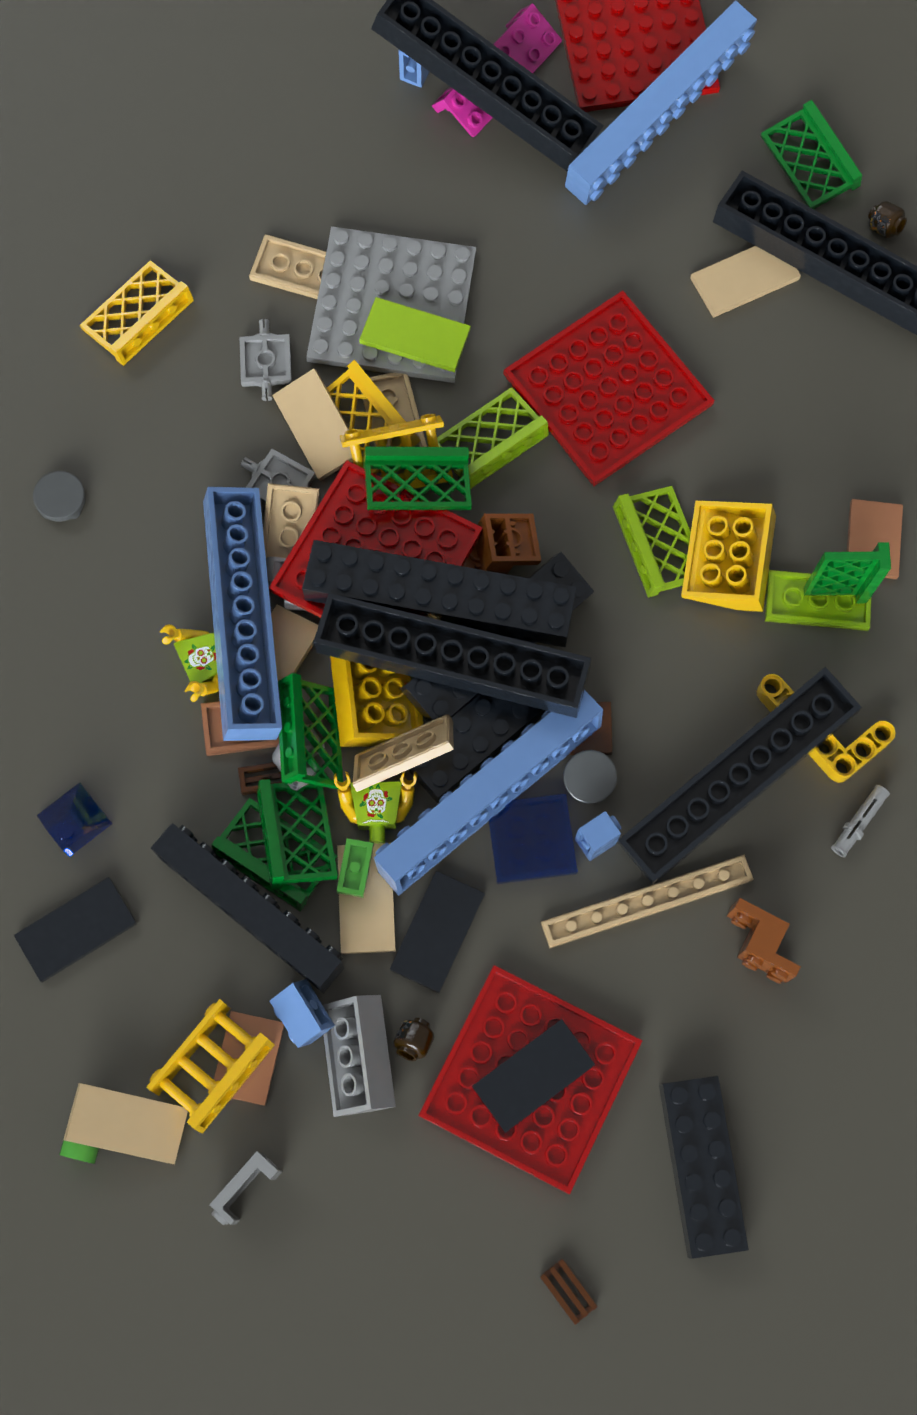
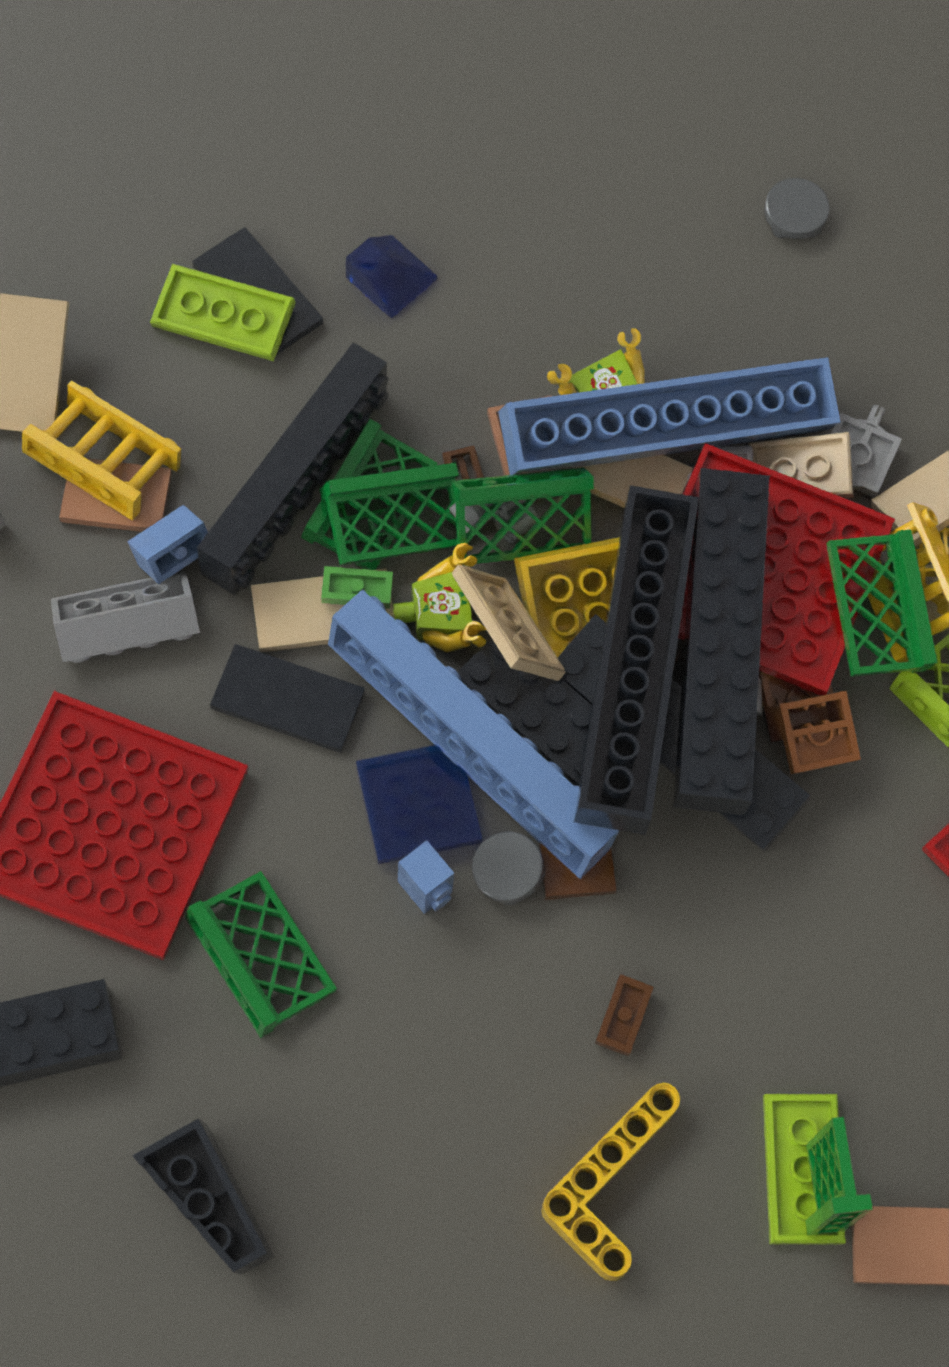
camera: 80 degrees right, 5 degrees down
(93, 959) = (223, 312): none -> lime tile
(413, 1039) = (148, 678): dark brown head -> none
(533, 1075) = (108, 821): black tile -> none
(639, 541) = (848, 912): lime fence -> none
(646, 901) = (350, 959): tan tile -> none
(651, 988) = (230, 960): none -> green fence
(704, 707) = (624, 1015): none -> reddish brown plate
(729, 554) = (849, 1035): yellow slope -> none
(739, 775) = (529, 1056): black brick -> none
(762, 941) = (301, 1101): dark orange bracket -> none
(818, 1021) = (205, 1191): none -> black wedge
(843, 844) = (487, 1238): light grey pin -> none

